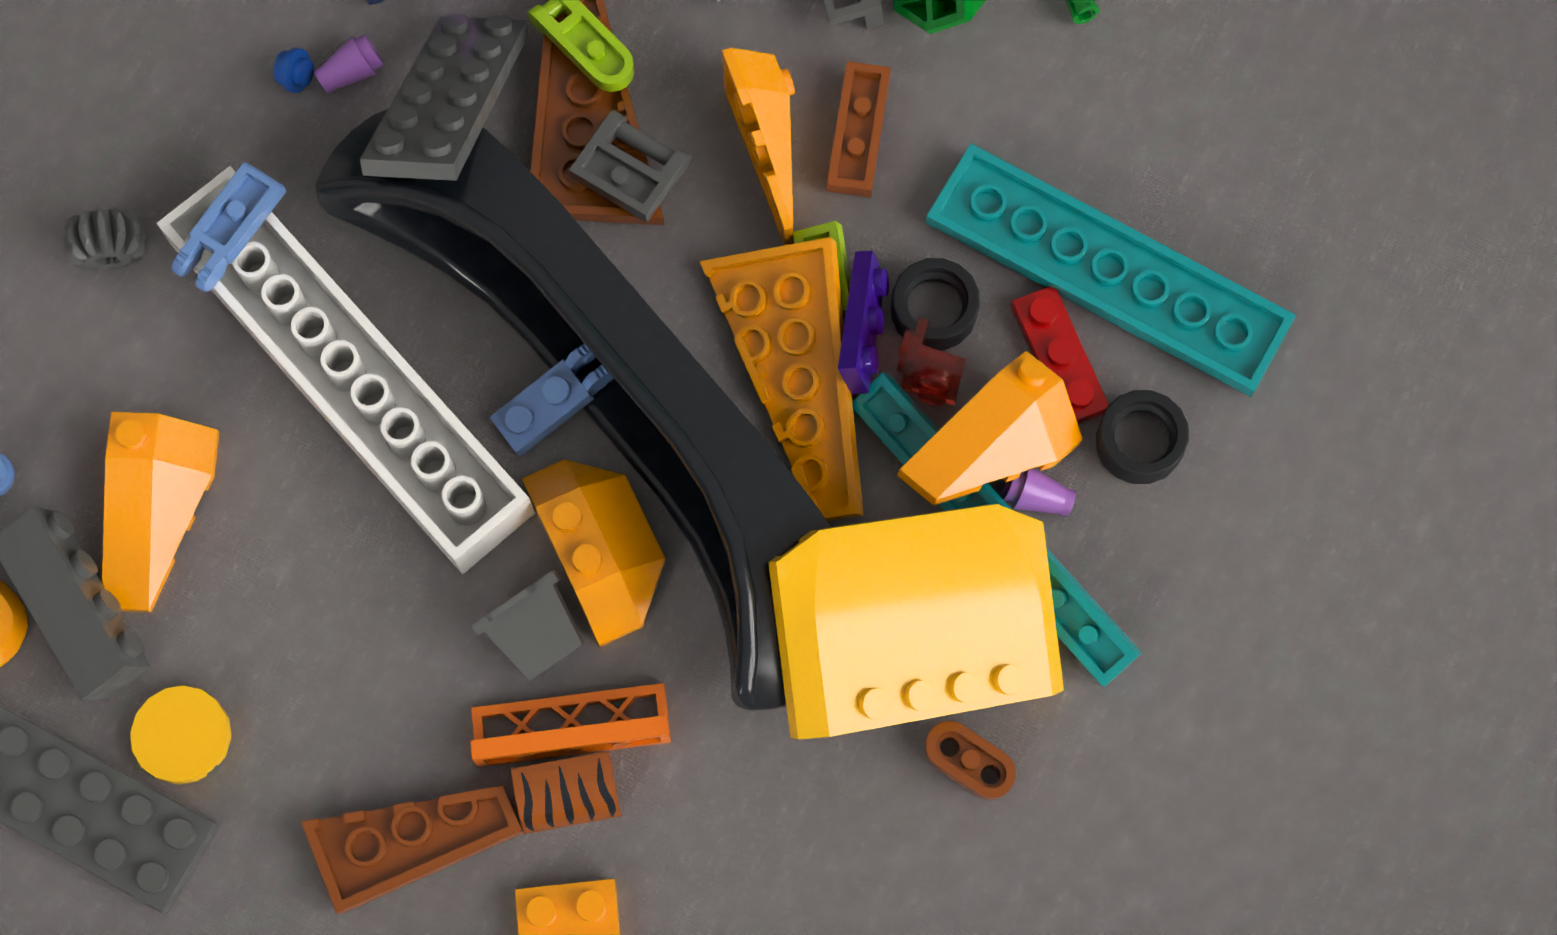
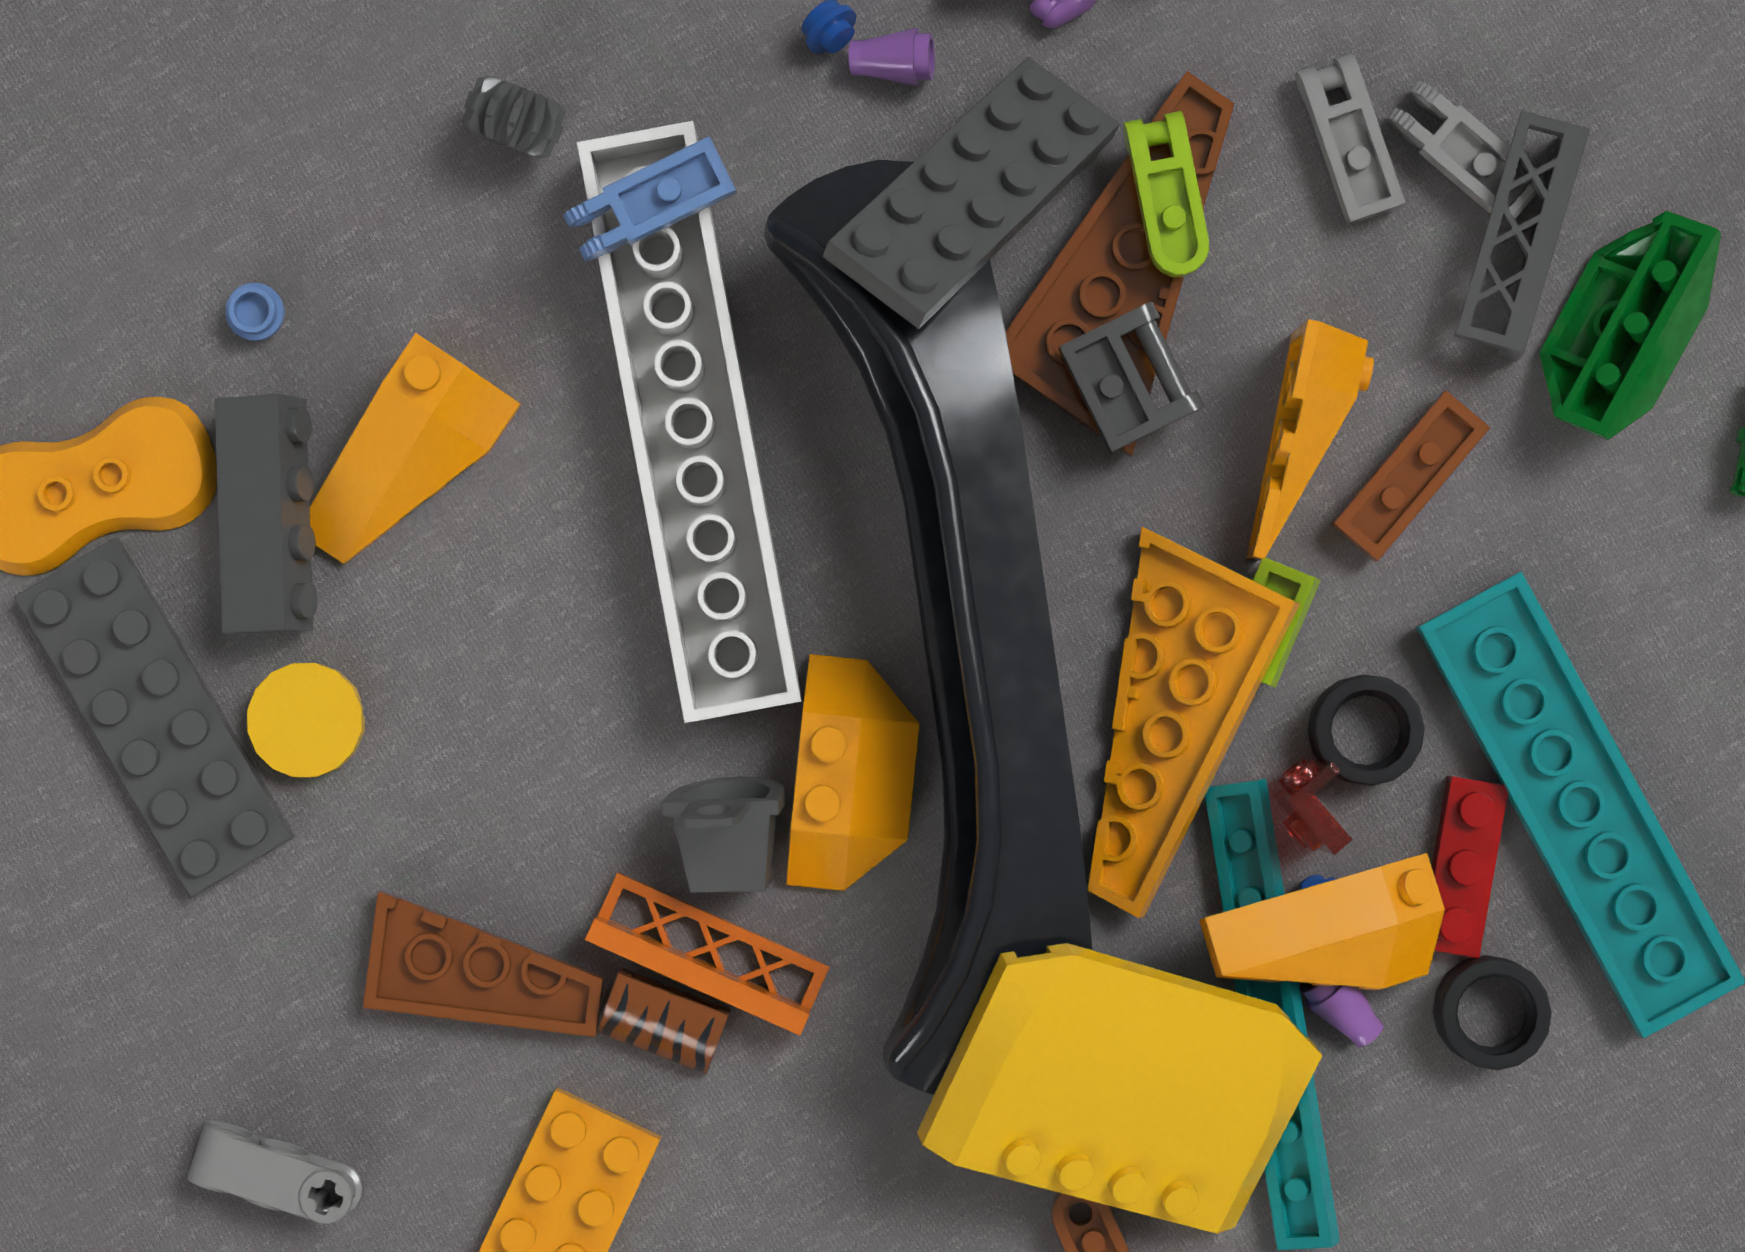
camera: 30 degrees right, 15 degrees up
(549, 401) = (879, 591): medium blue hinge -> none
(863, 322) = (1274, 711): dark purple plate -> none

